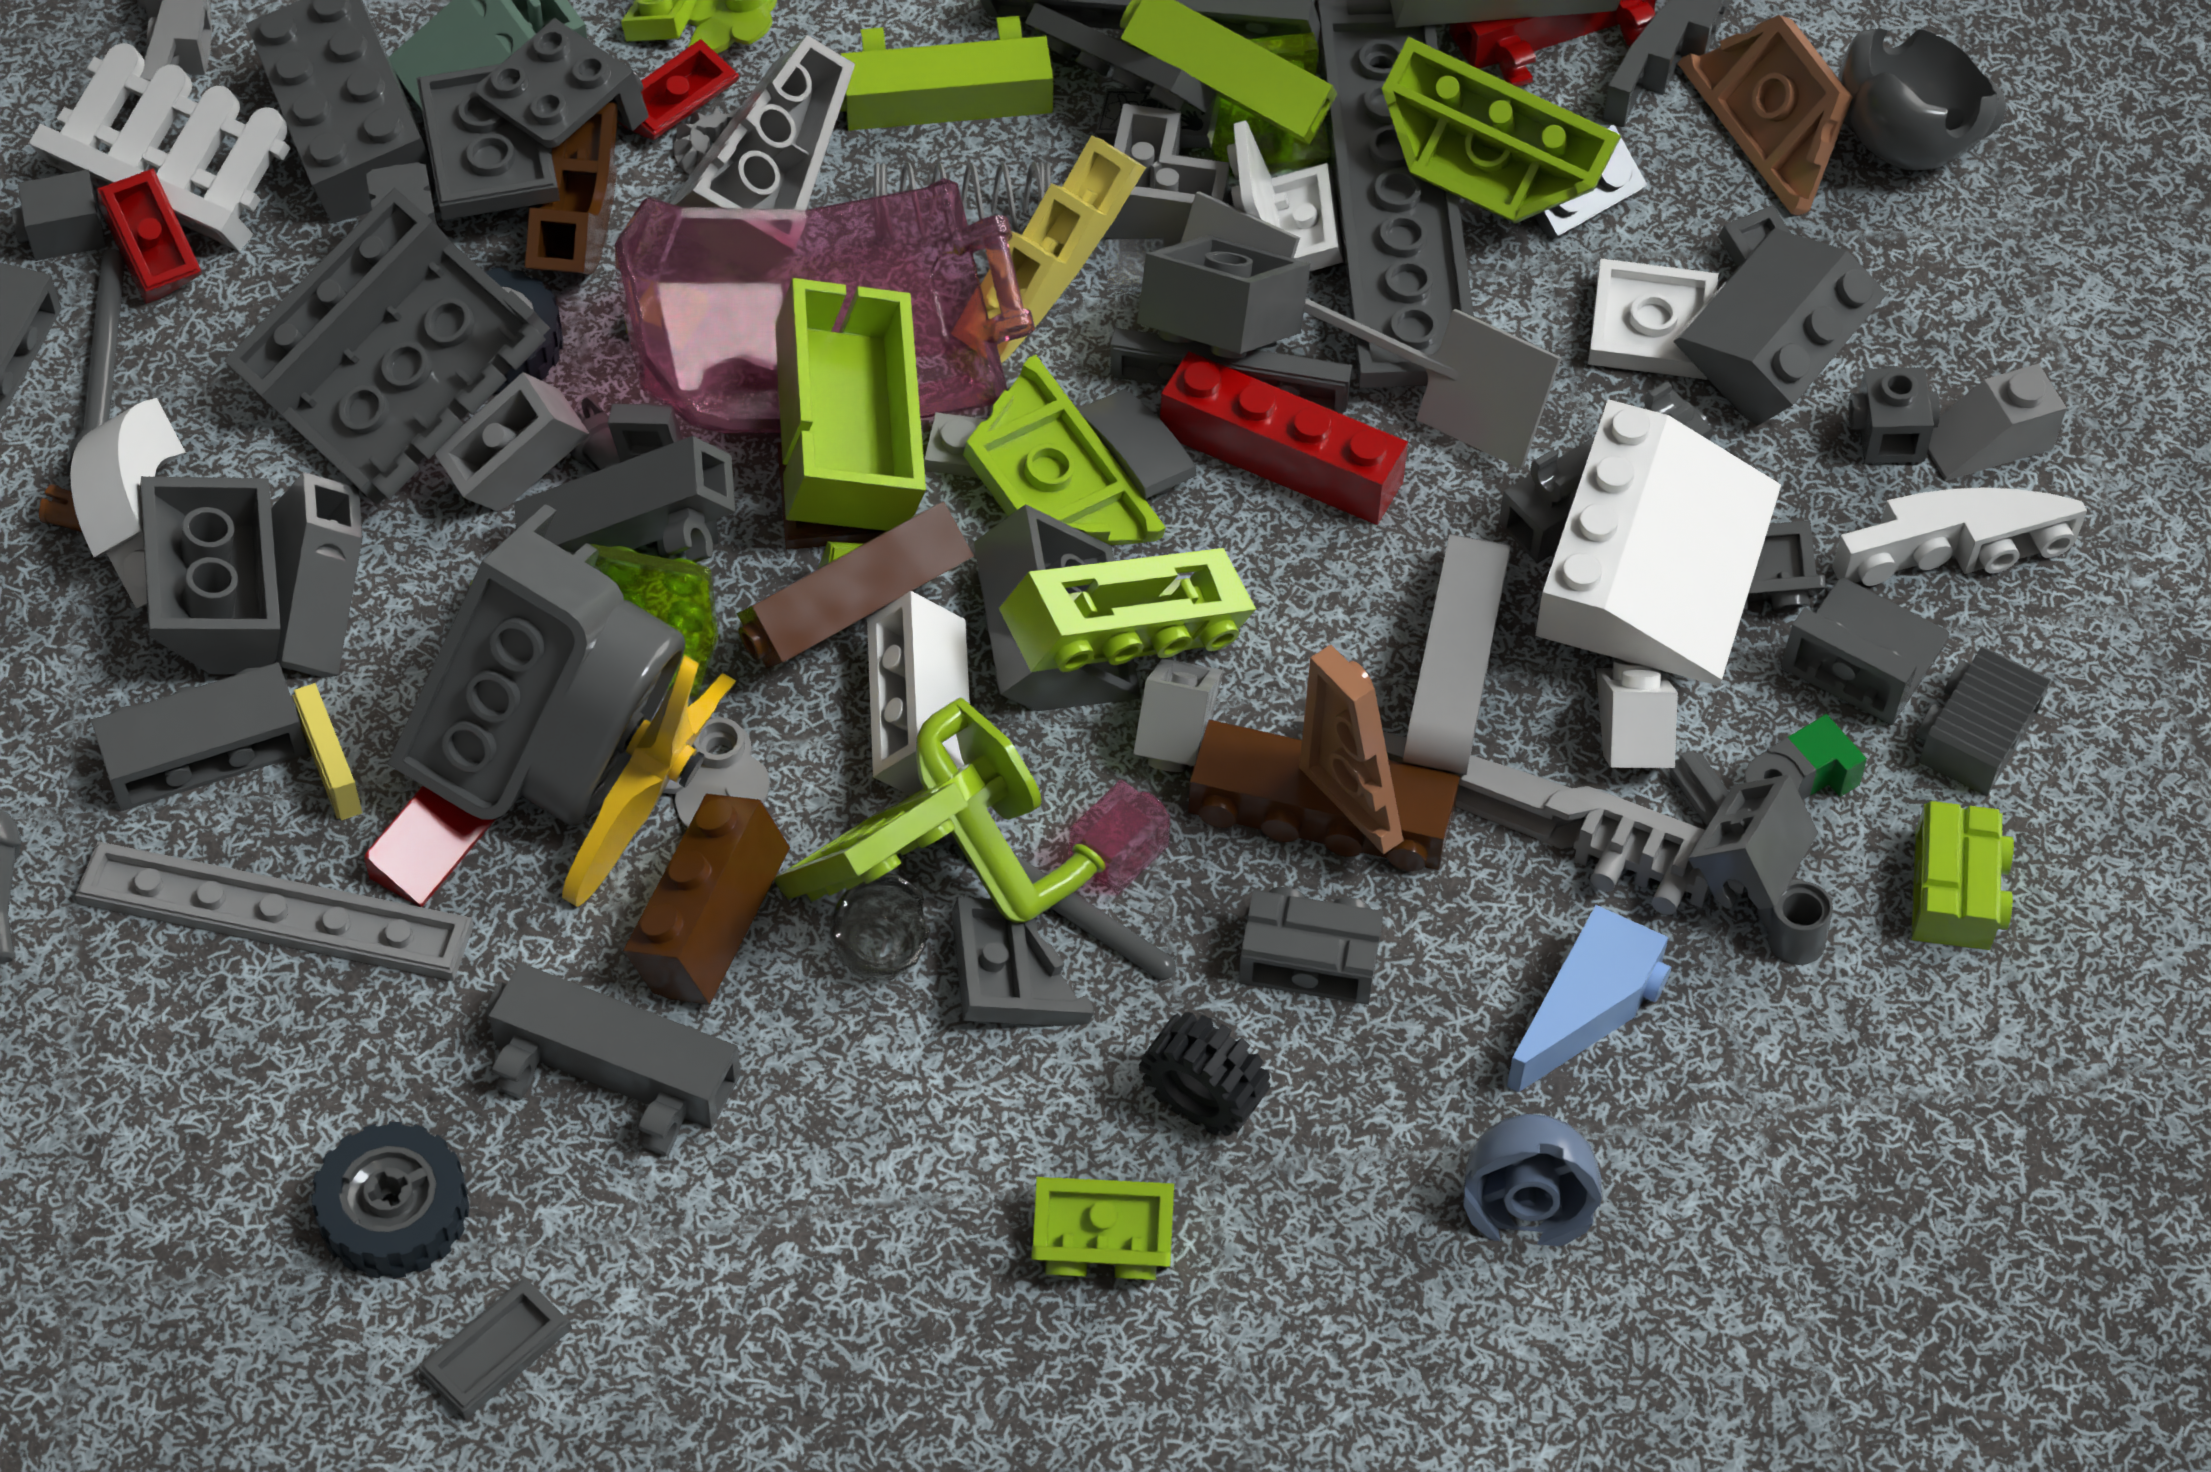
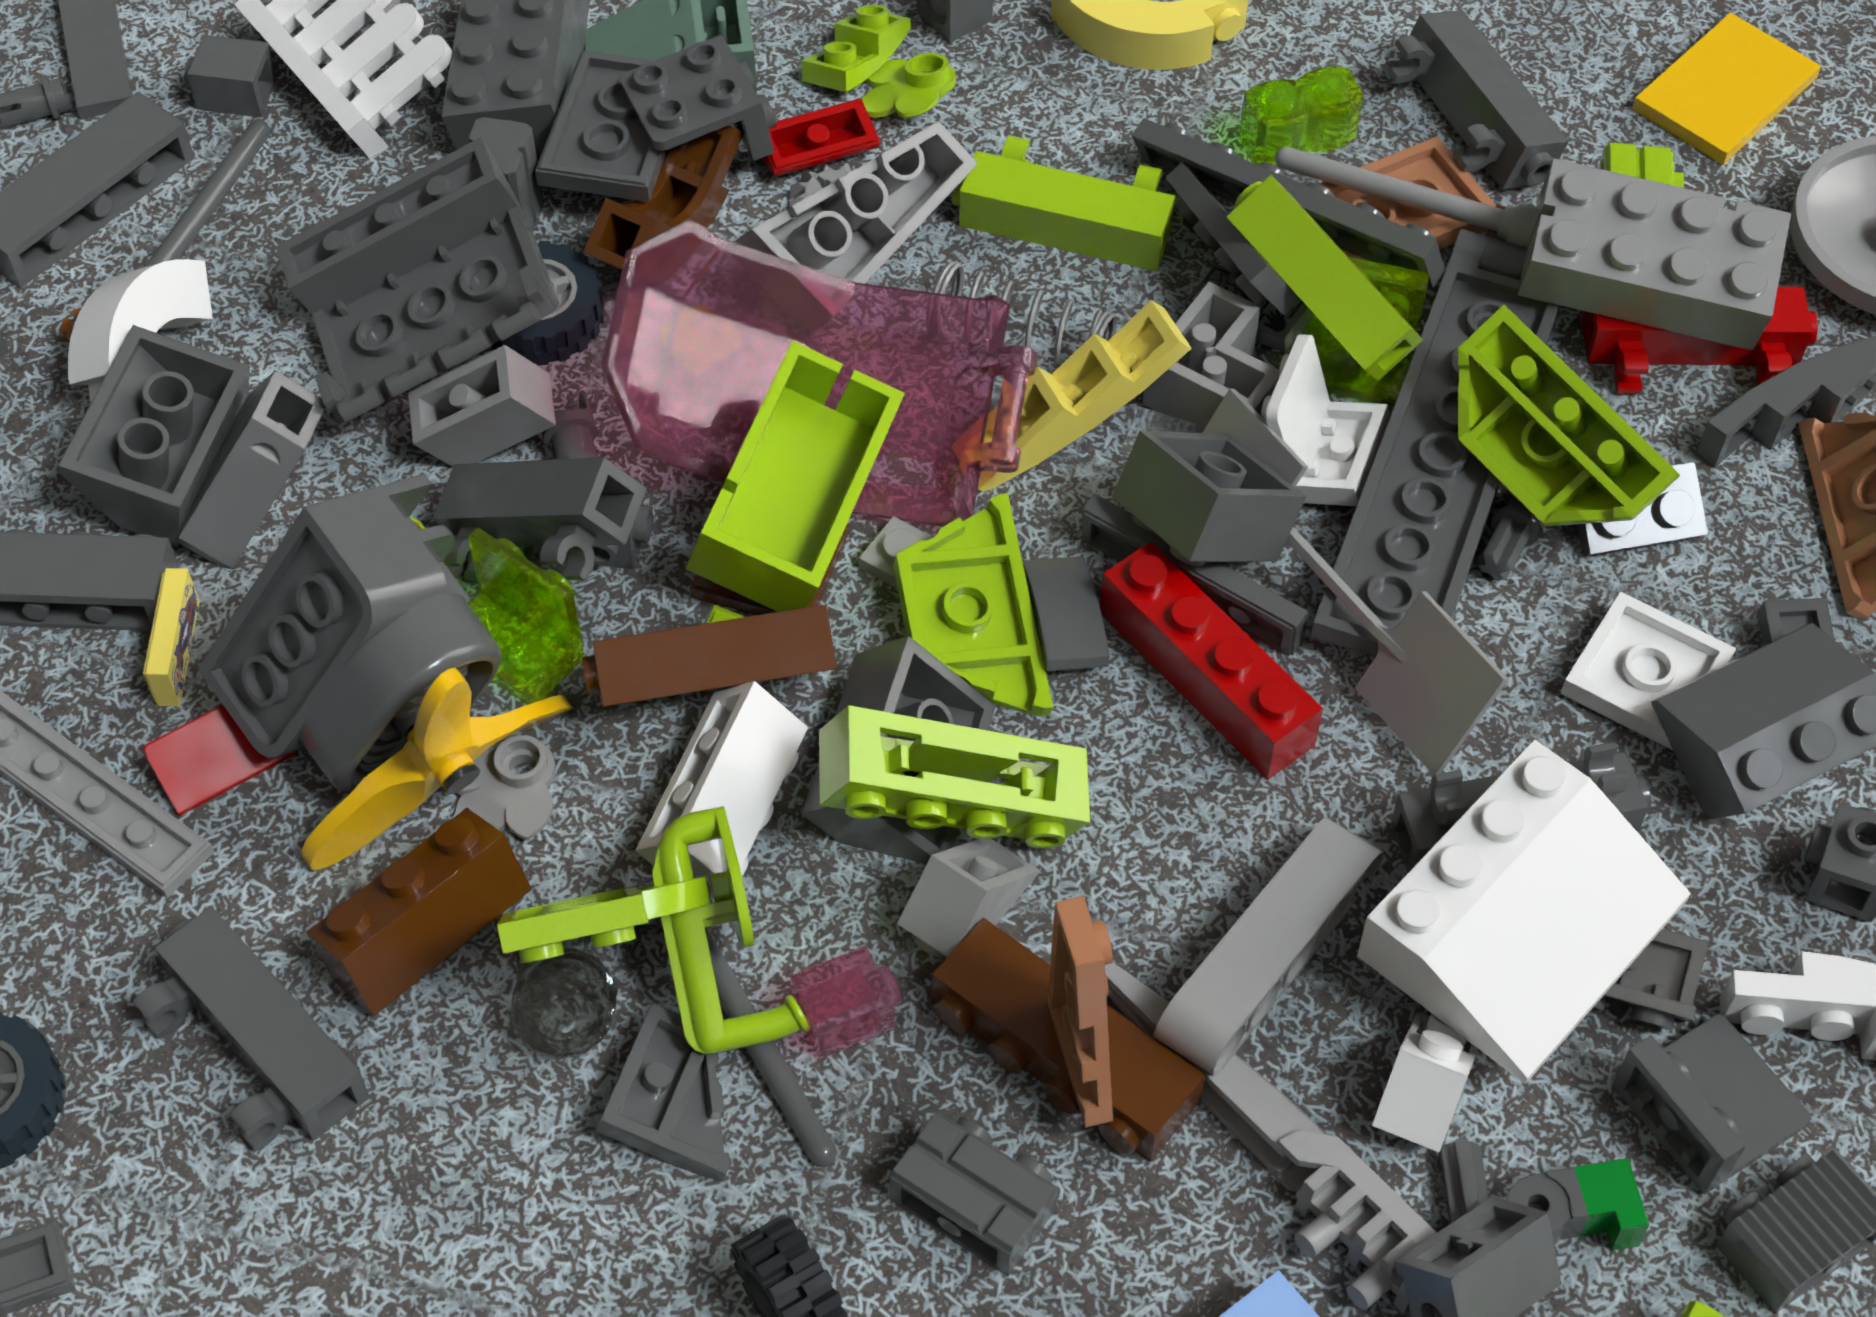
camera: 25 degrees right, 0 degrees up
(148, 235) = (287, 116): red slope -> none
(642, 428) = (597, 435): dark grey plate -> none
(1483, 237) = (1512, 531): none -> dark grey axle

